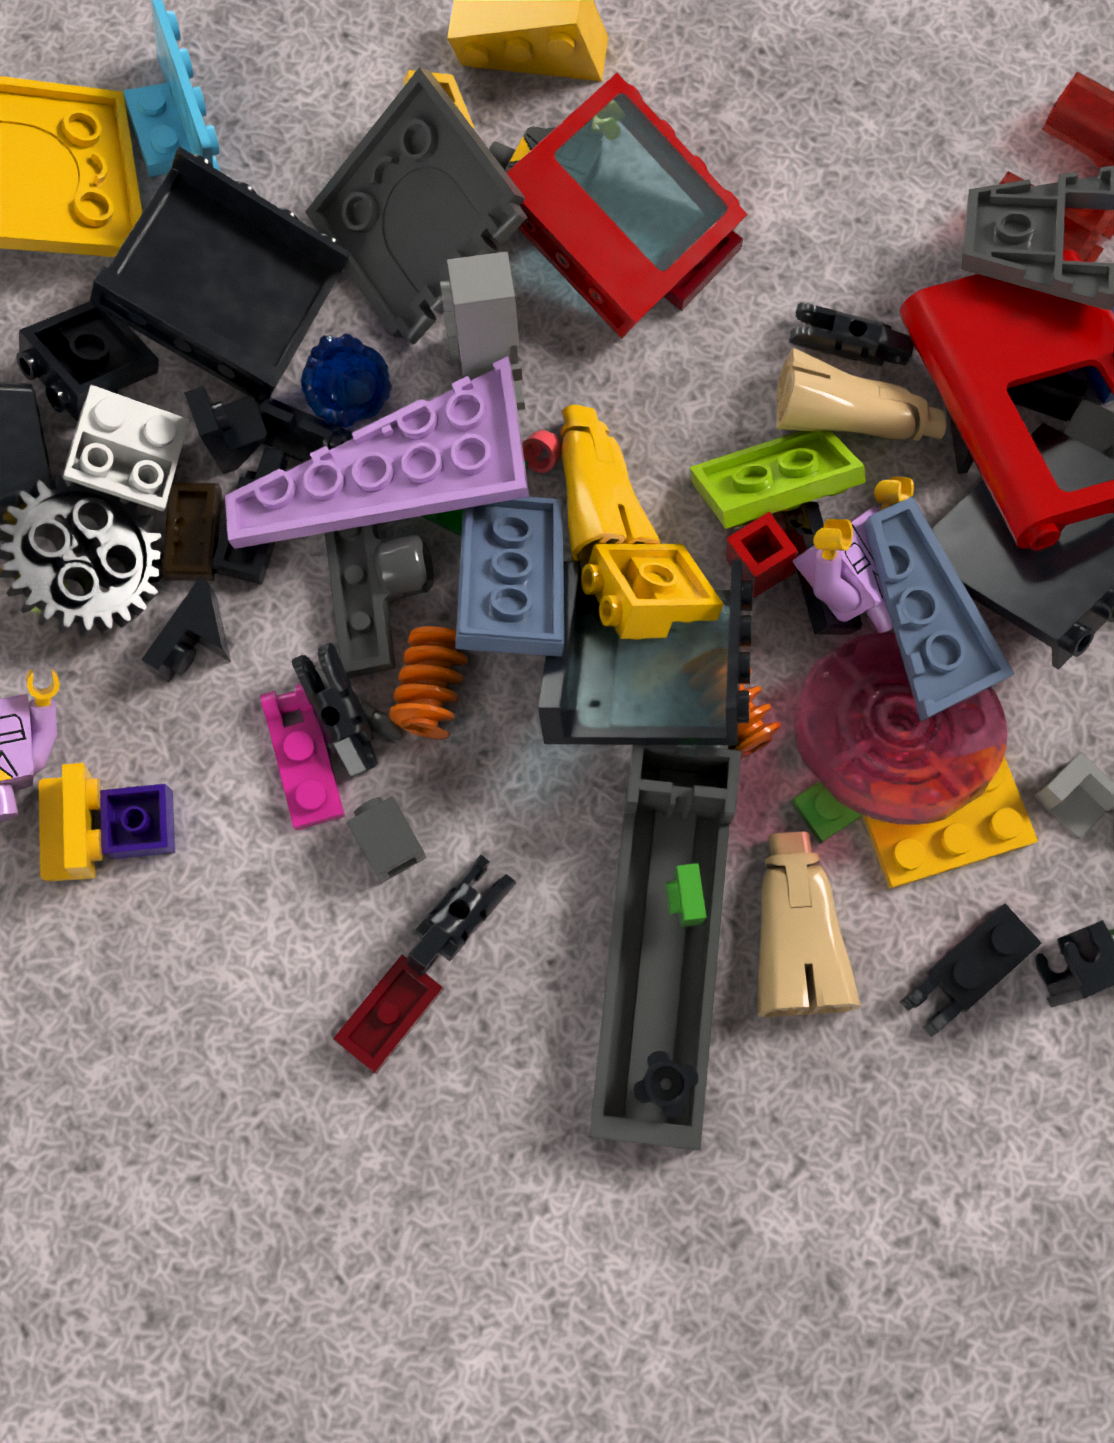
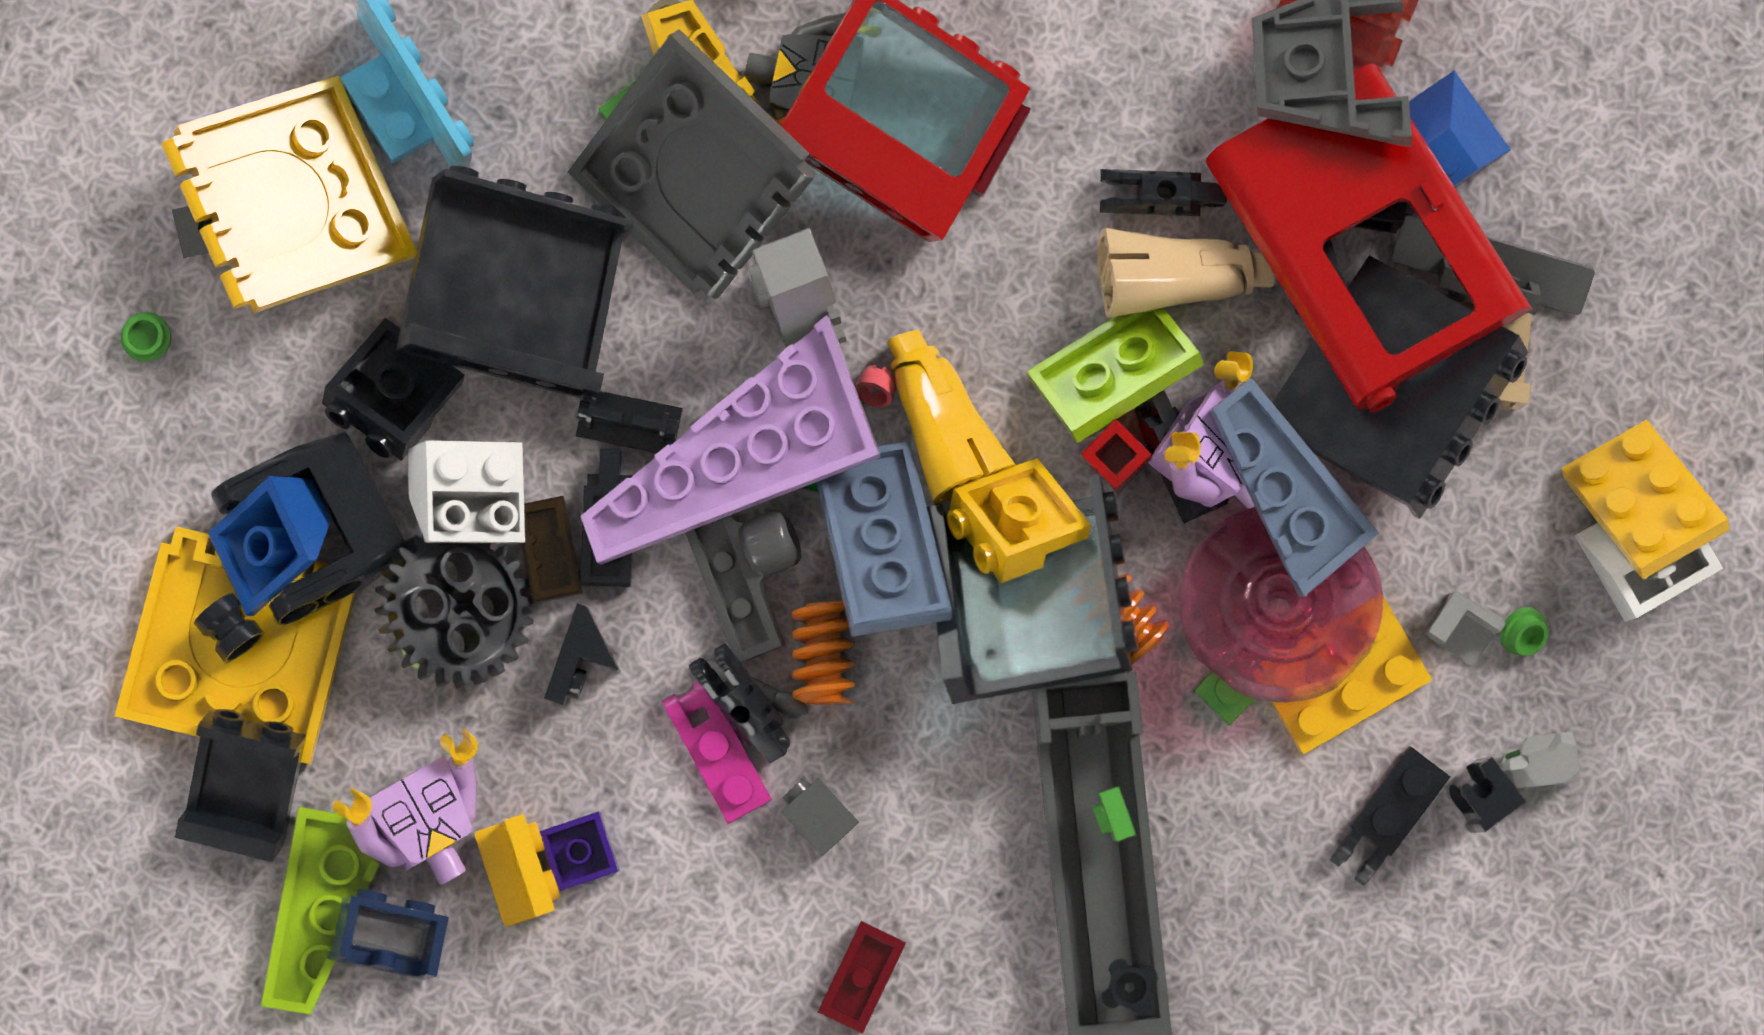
camera: 15 degrees left, 10 degrees up
(227, 430) = (564, 440): black slope -> none
(344, 374) = (665, 367): clear blue hair -> none
(446, 935) = (897, 894): black hinge -> none
(801, 942) = (1225, 818): tan piece -> none

